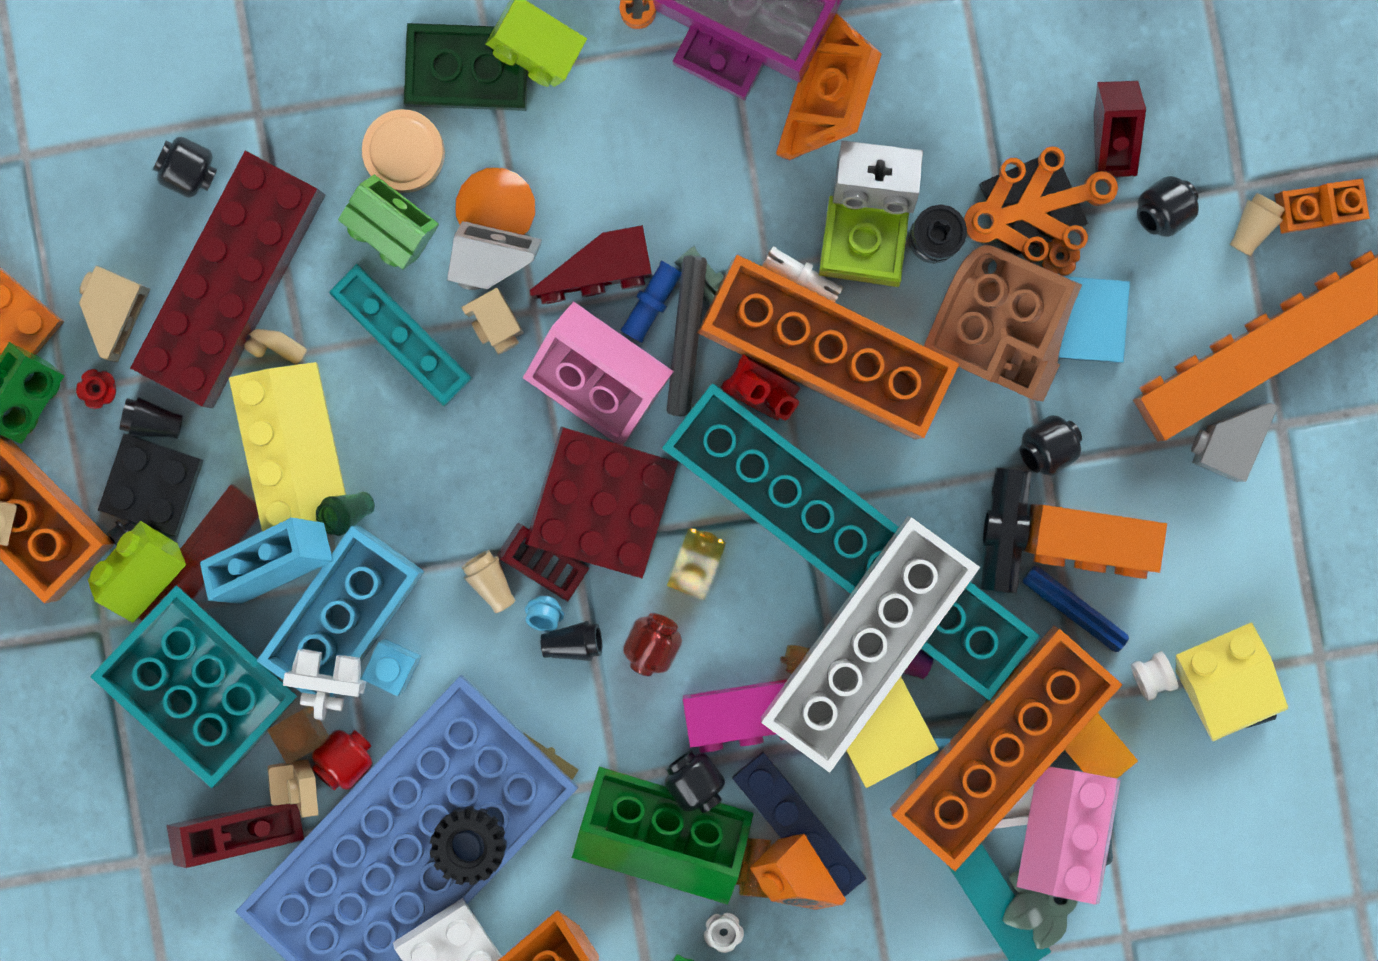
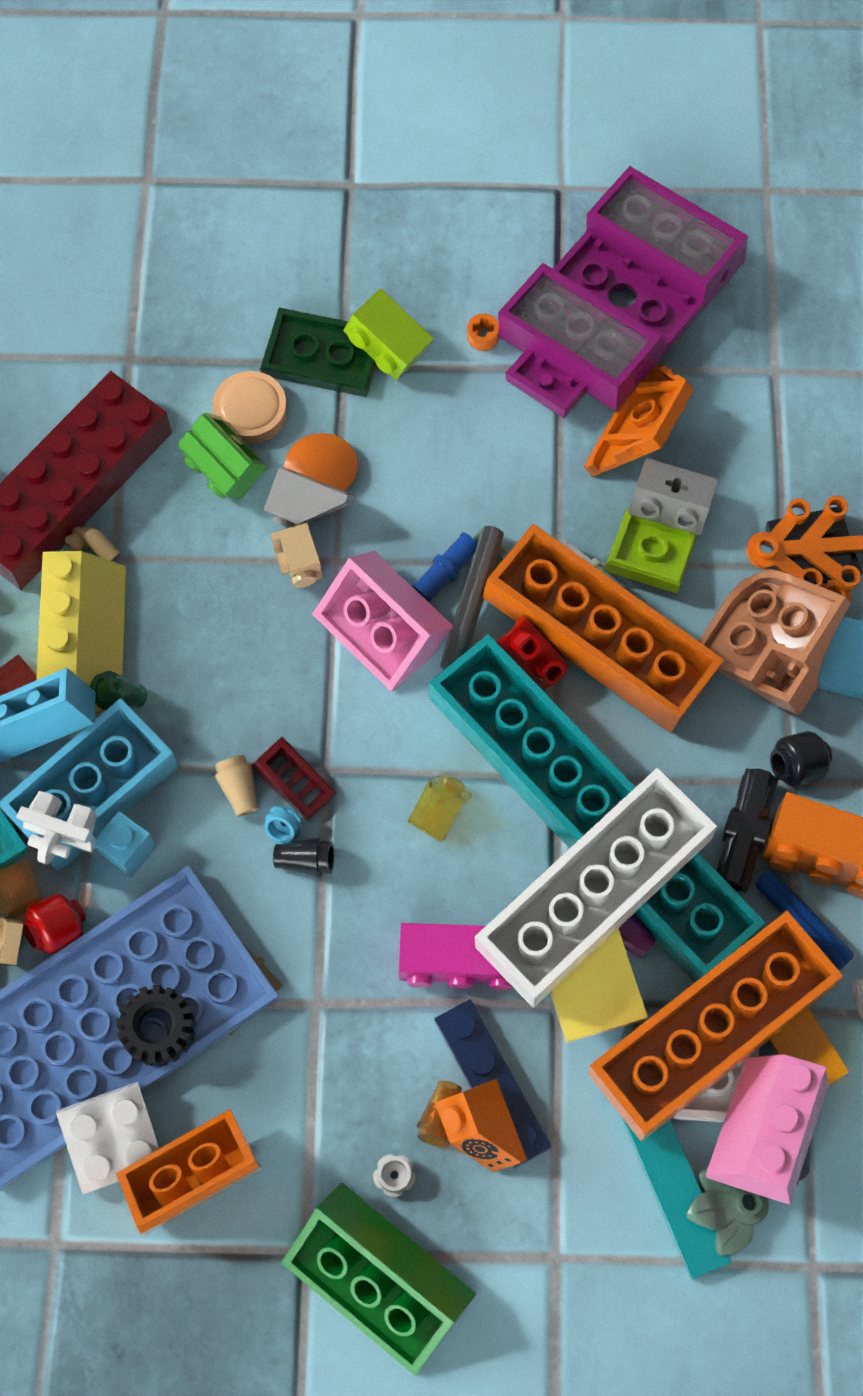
camera: 15 degrees right, 20 degrees down
(184, 167) = (53, 382): black head -> none
(400, 335) = (209, 558): teal tile -> none
(601, 502) = (361, 732): dark red plate -> none
(605, 261) = (408, 525): dark red slope -> none
(647, 835) = (352, 1061): green slope -> none
(652, 644) = (382, 871): clear red head -> none
(694, 782) = (396, 1011): black head -> none
(937, 234) = (720, 553): black wheel -> none

